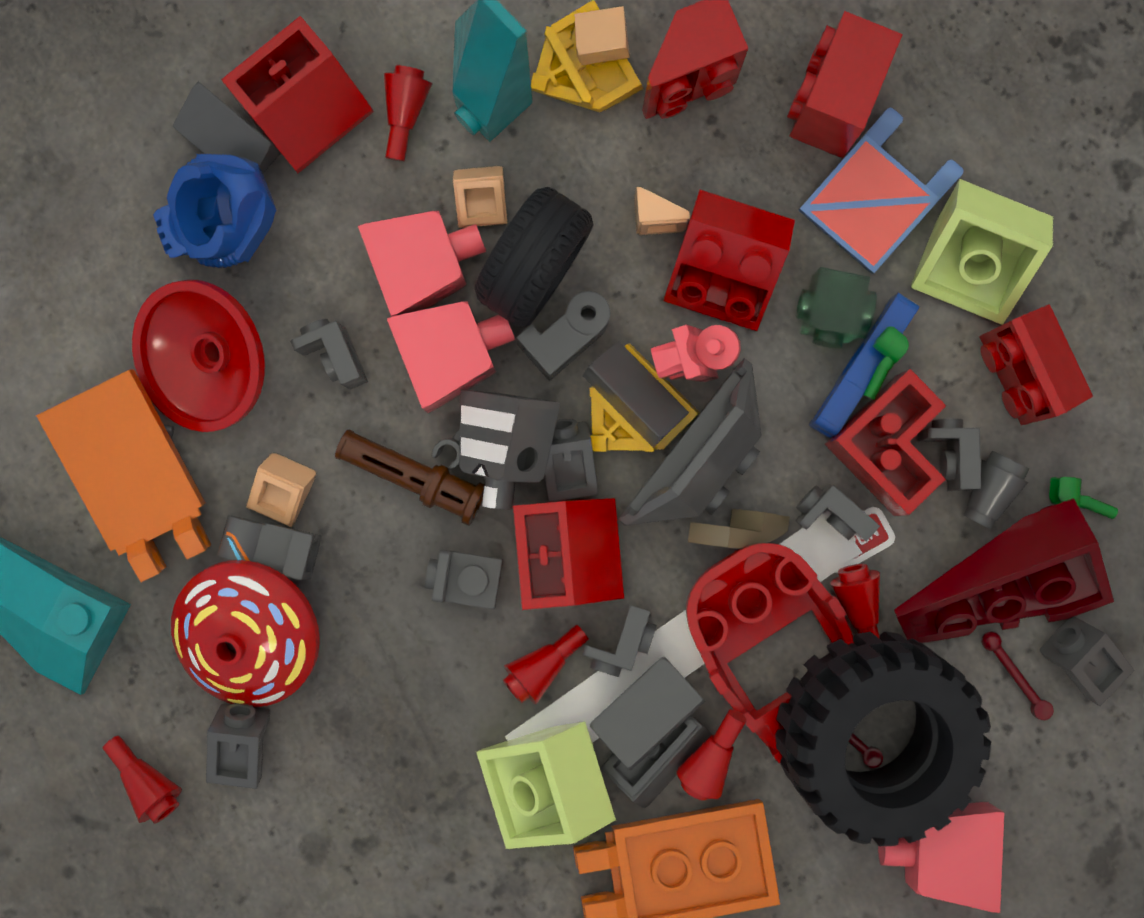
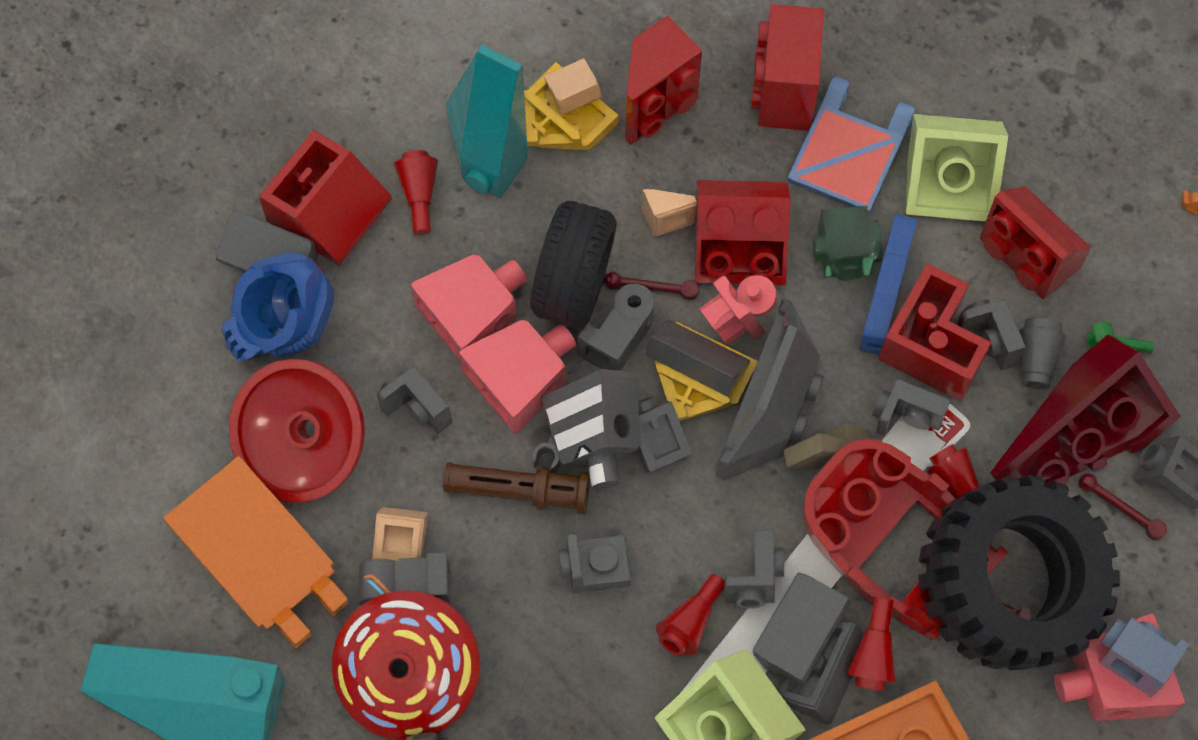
camera: 15 degrees left, 20 degrees down
(480, 196) = (507, 241): light nougat slope -> none
(568, 553) = (680, 507): red slope -> none
(653, 307) = (688, 290): none -> dark red hinge
(893, 347) = (904, 251): green hand -> none
(976, 863) = (1141, 654): none -> sand blue brick

